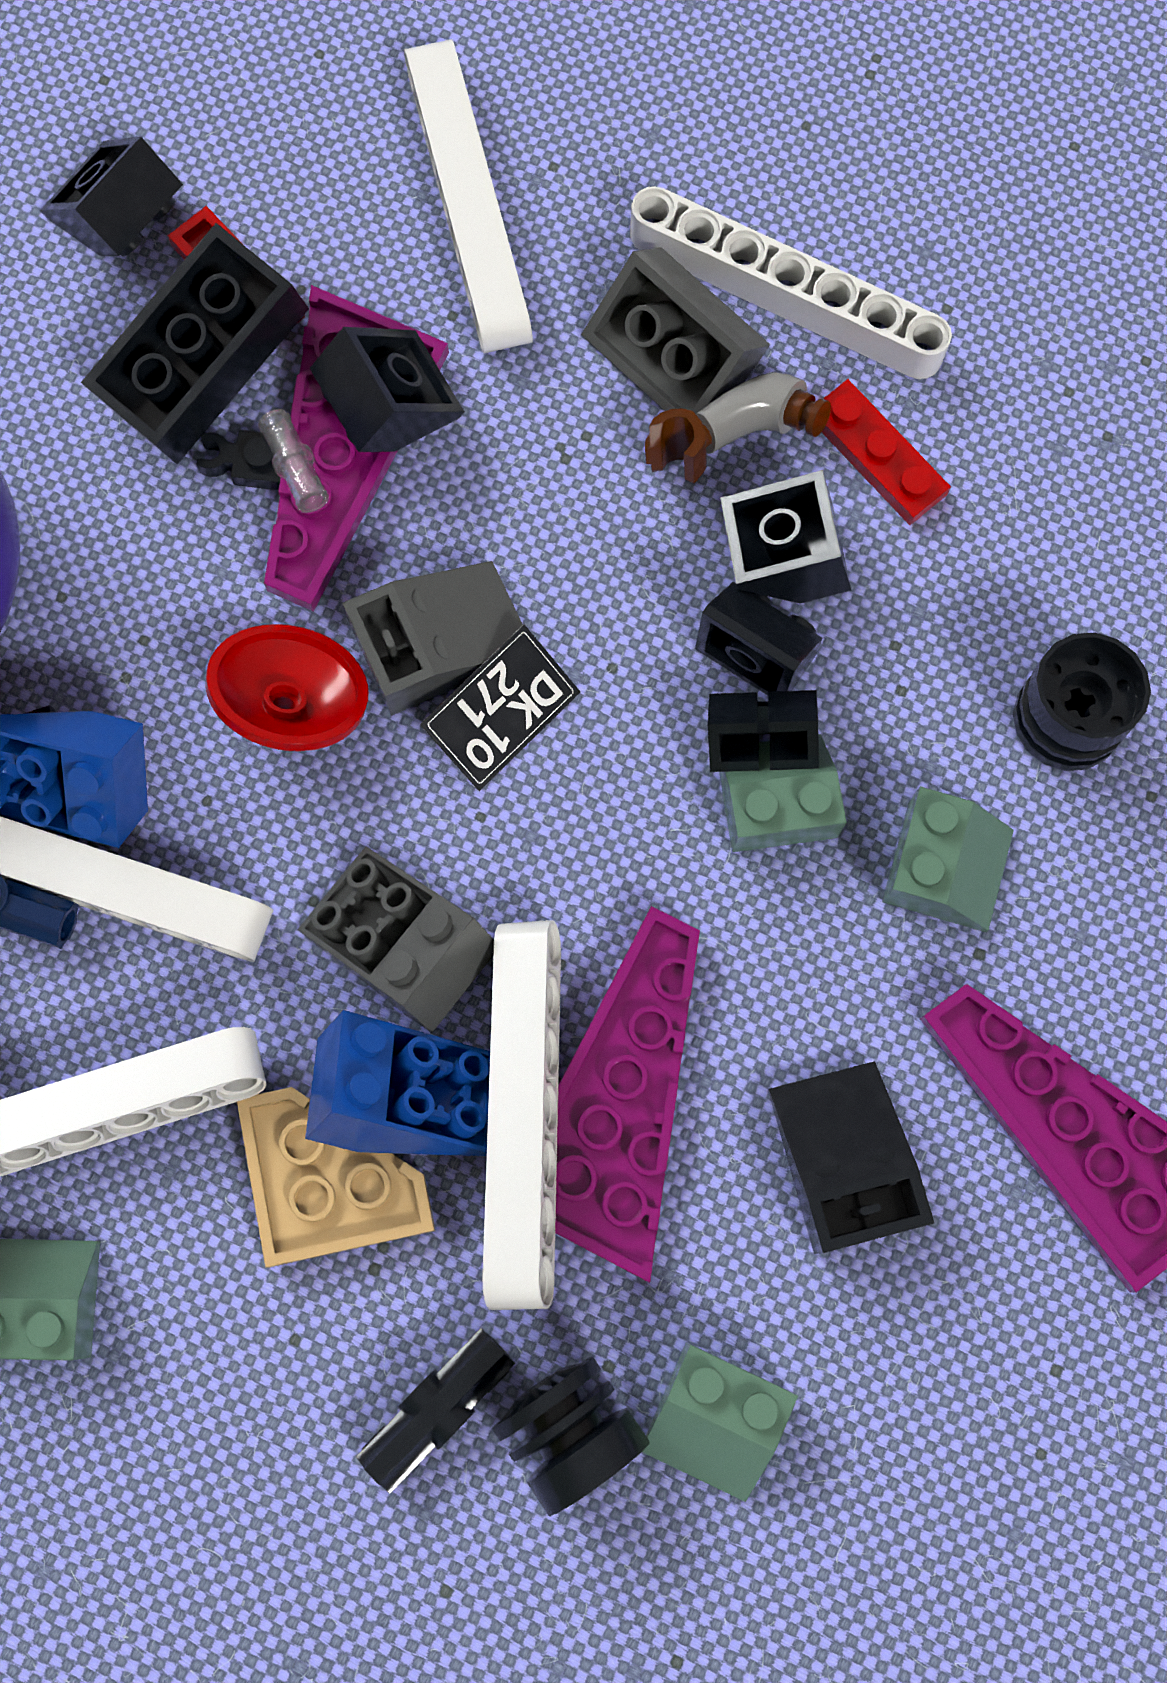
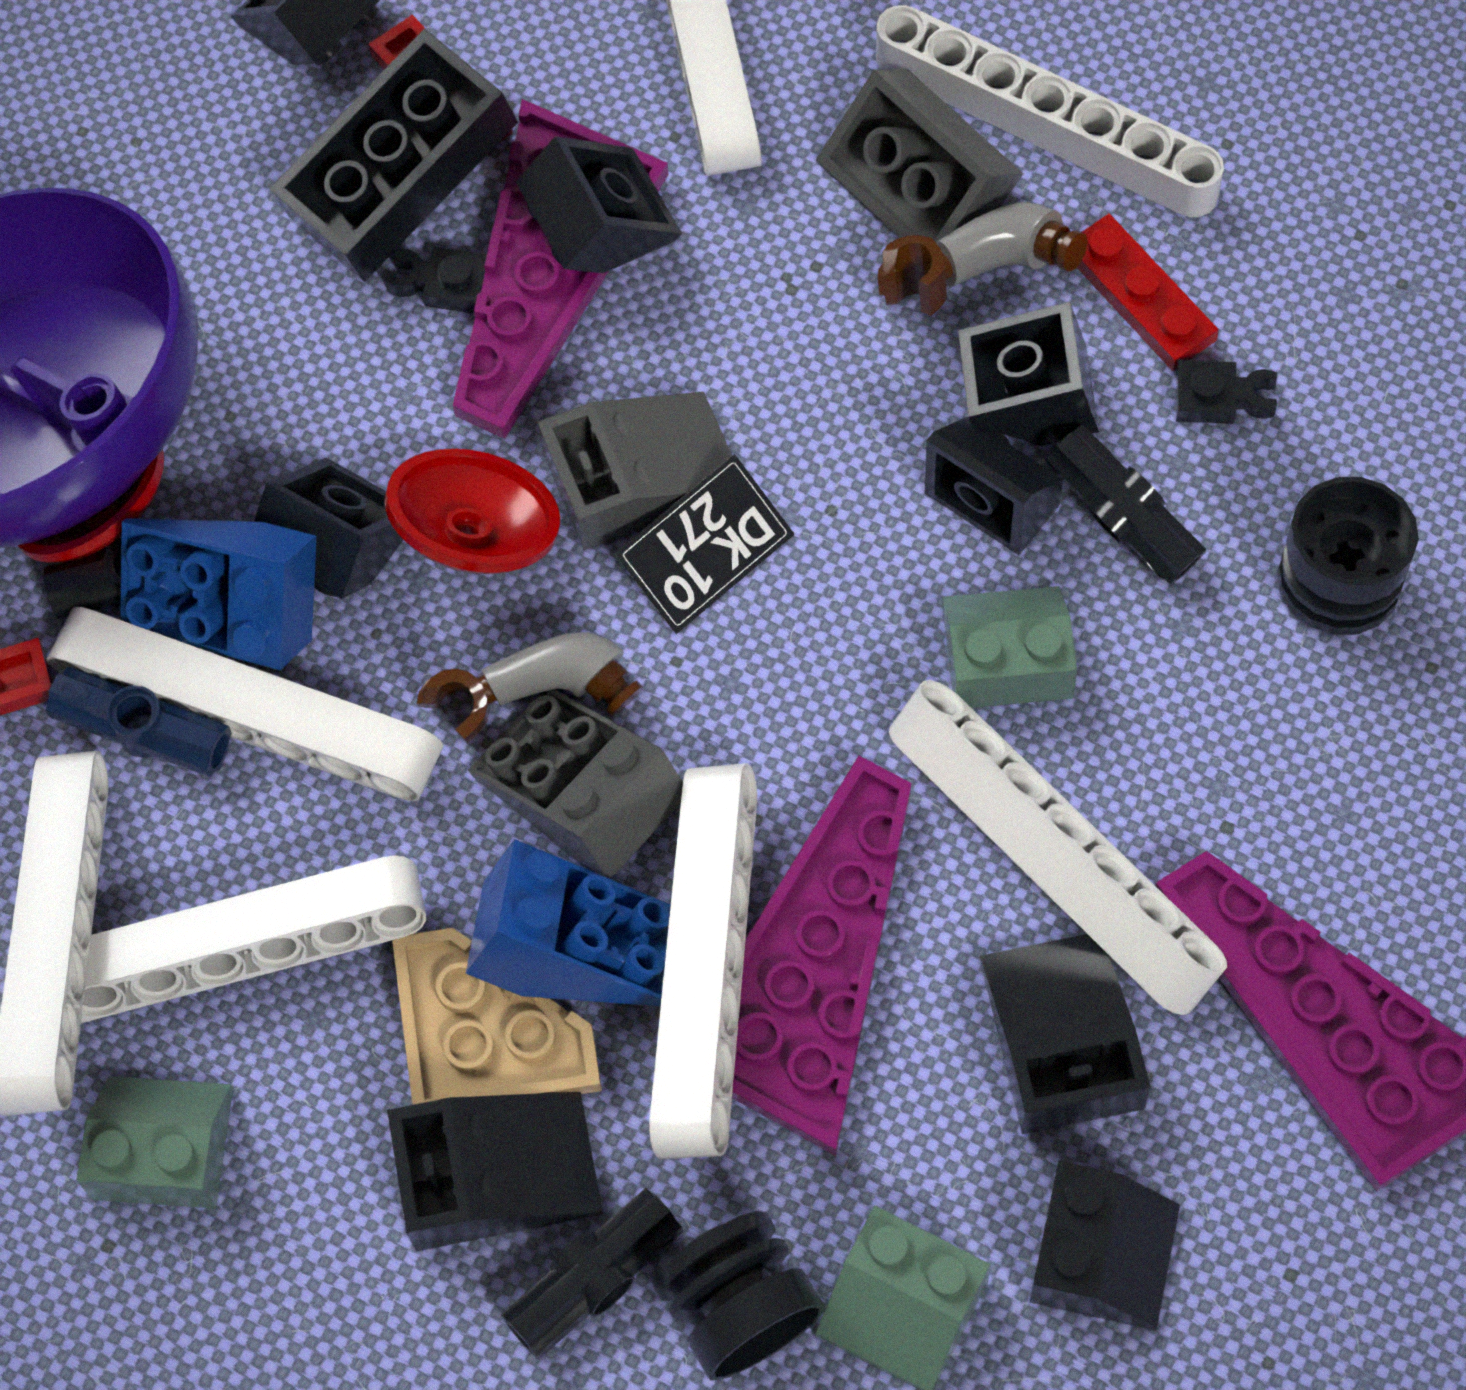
camera: 10 degrees right, 10 degrees down
(164, 693) = (344, 515): none -> black slope
(293, 461) = (492, 277): clear pin -> none
(340, 1314) = (492, 1165): none -> black slope
(378, 828) = (567, 662): none -> piece
(739, 719) = (967, 565): black piece -> none
(834, 987) = (1058, 848): none -> white beam
(879, 659) = (1126, 505): none -> black piece
(892, 1361) = (1105, 1247): none -> black slope
(948, 545) = (1213, 392): none -> black plate
(948, 860) = (1195, 721): sand green slope -> none

